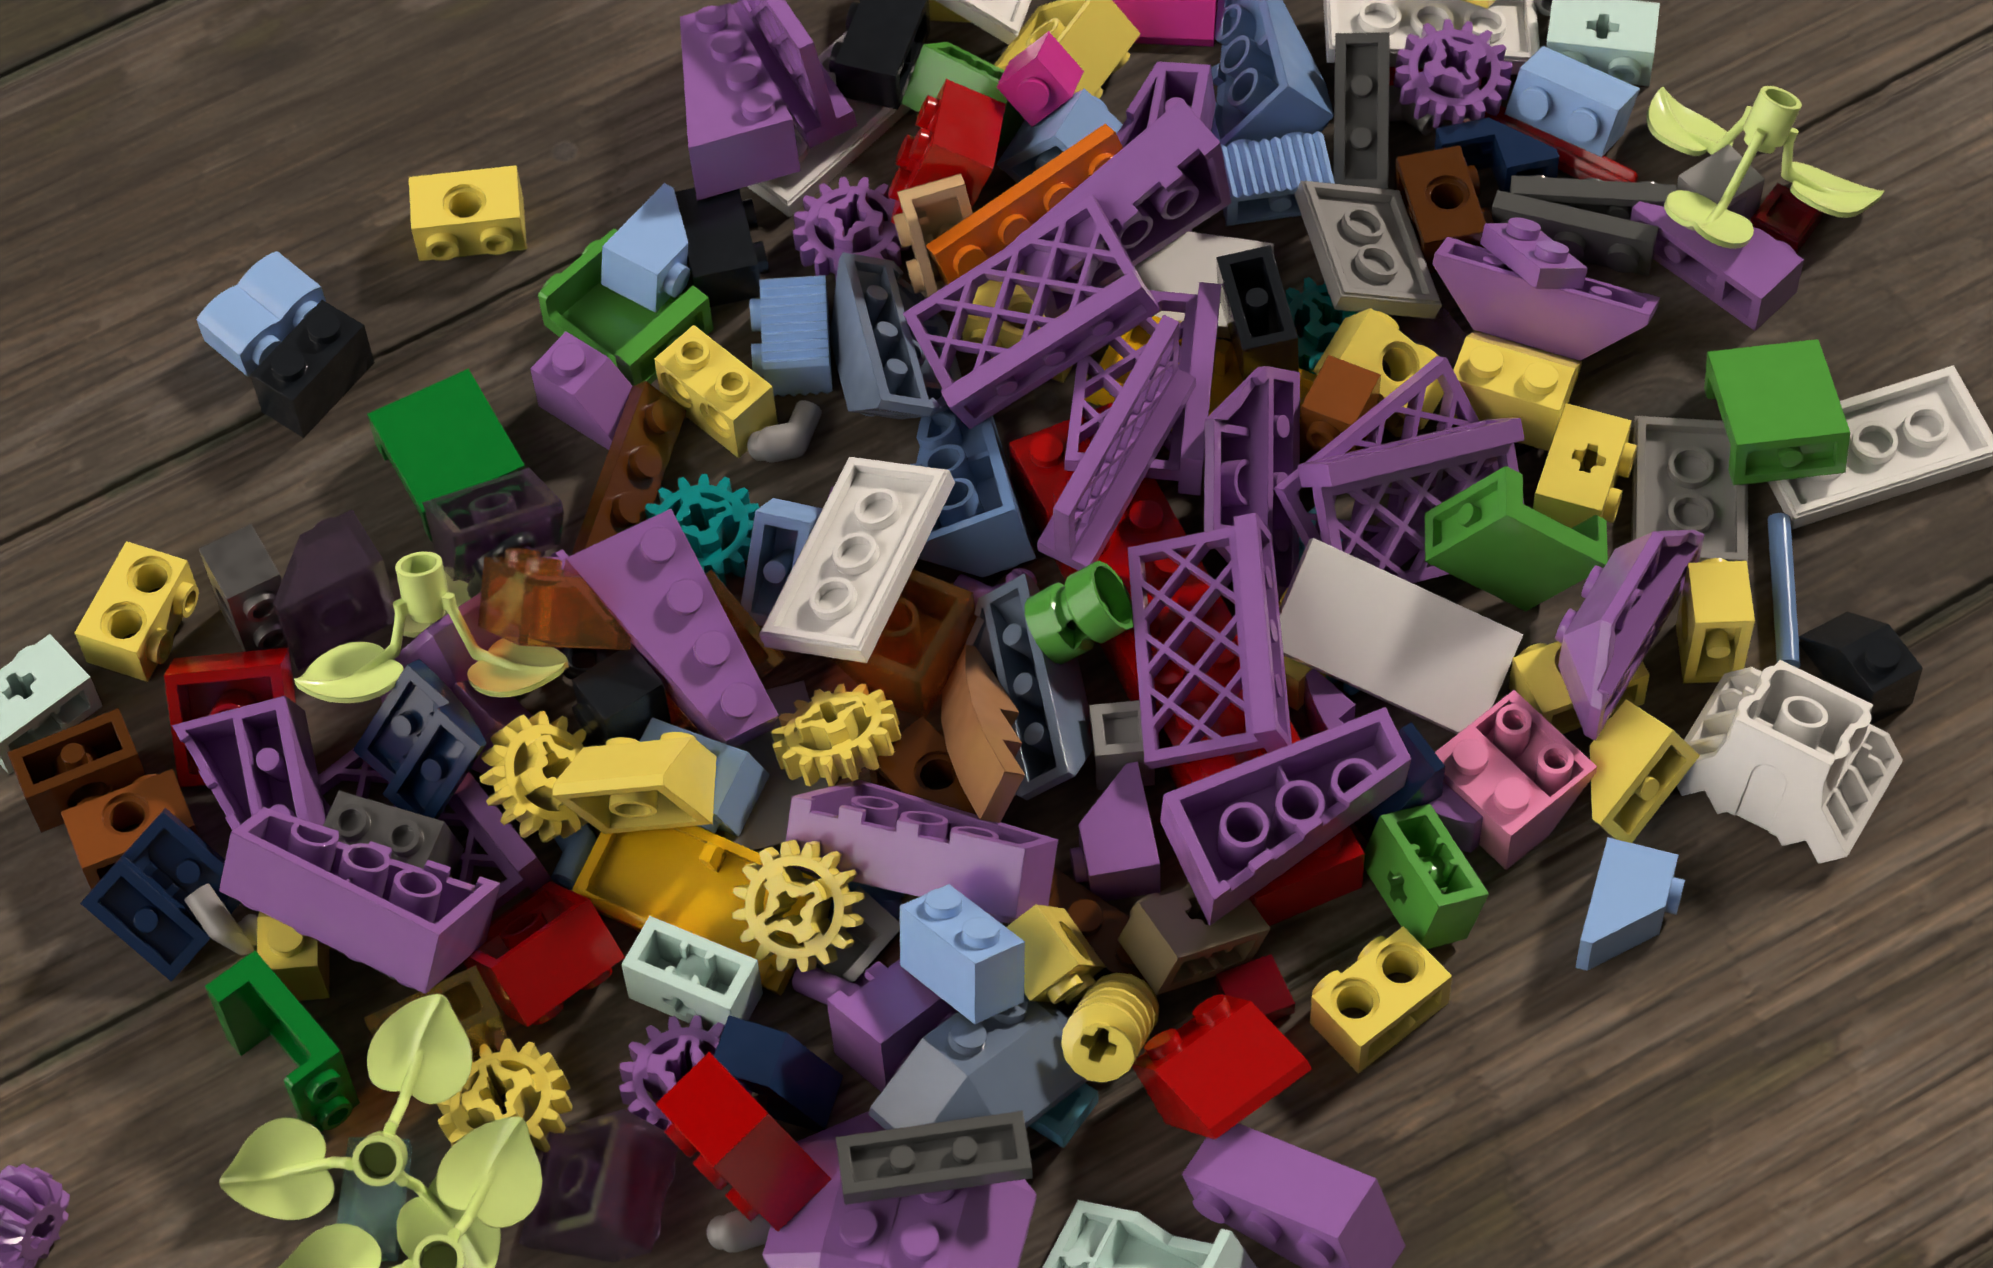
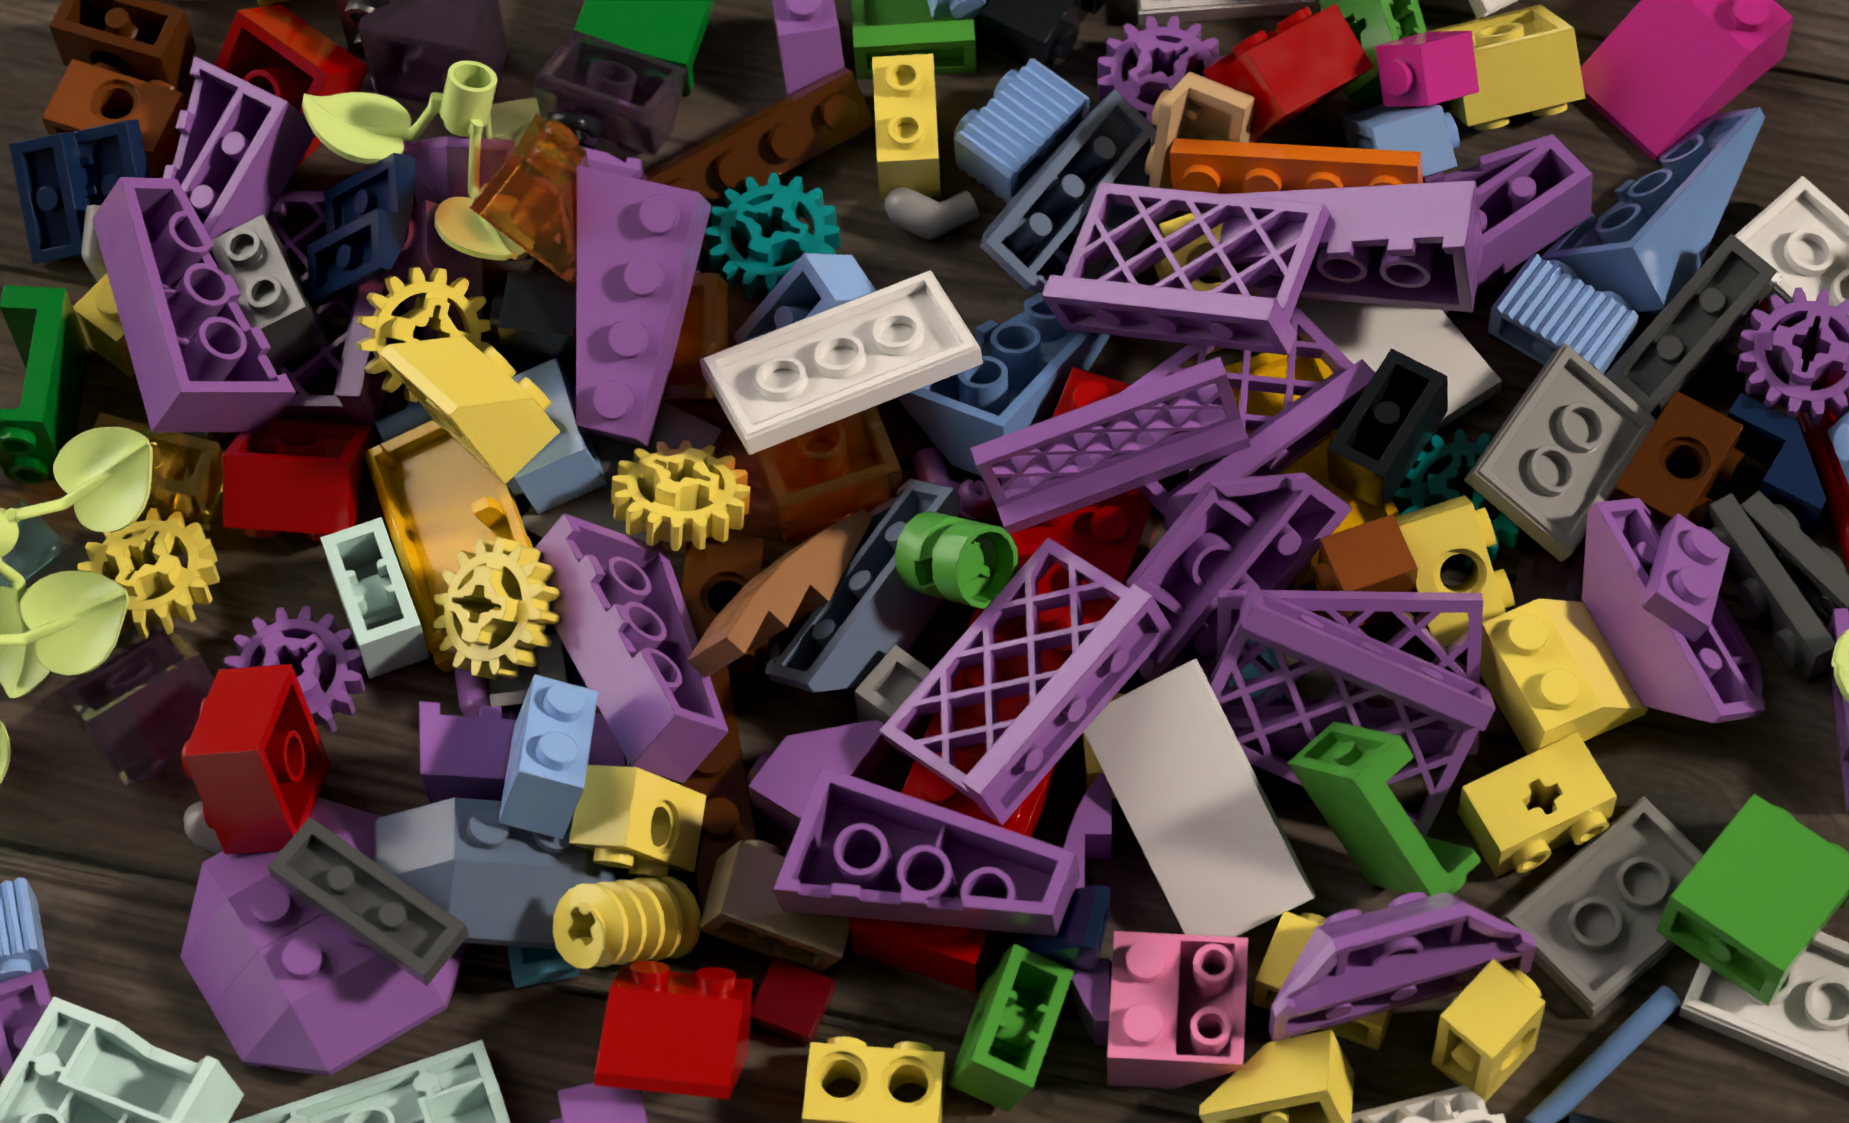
camera: 45 degrees right, 5 degrees up
(776, 1065) = (357, 730): dark blue slope -> none

